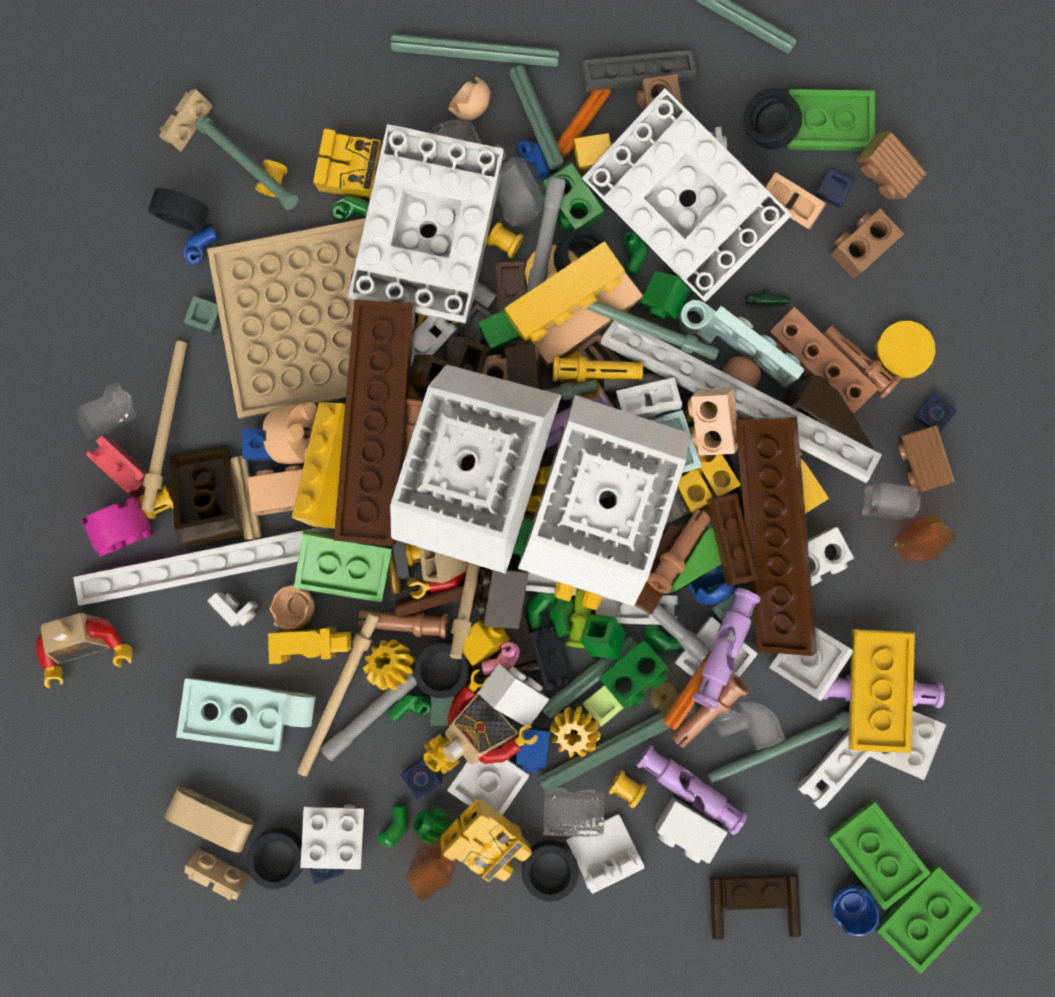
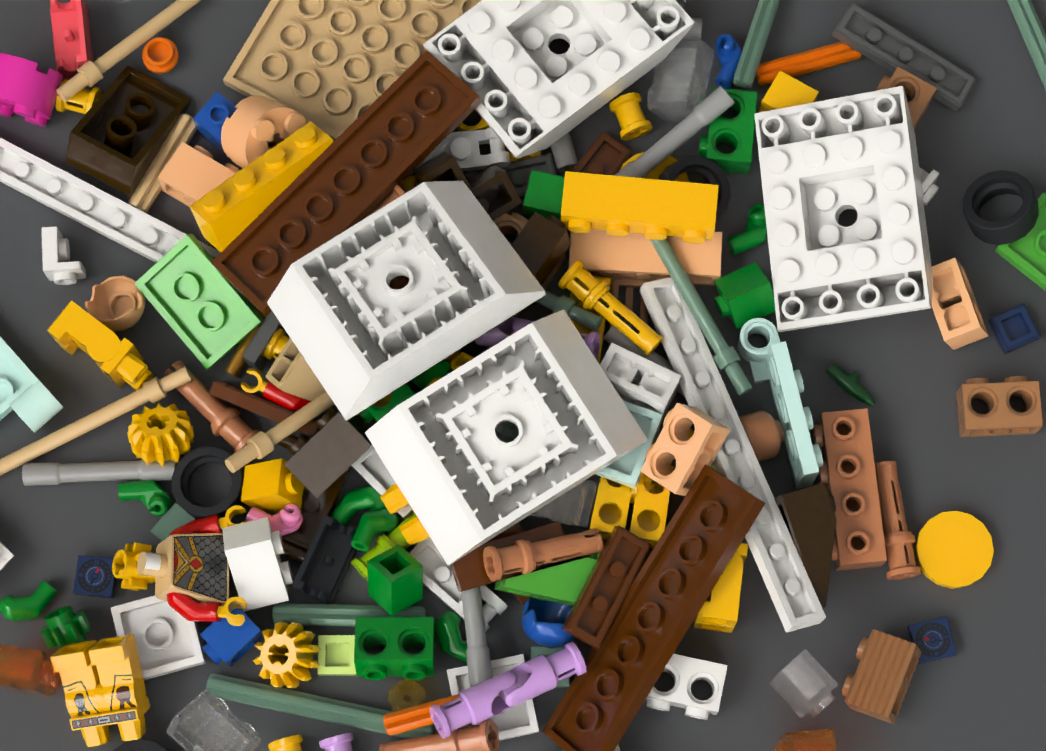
camera: 40 degrees right, 10 degrees down
(185, 433) = (160, 55): none -> orange plate

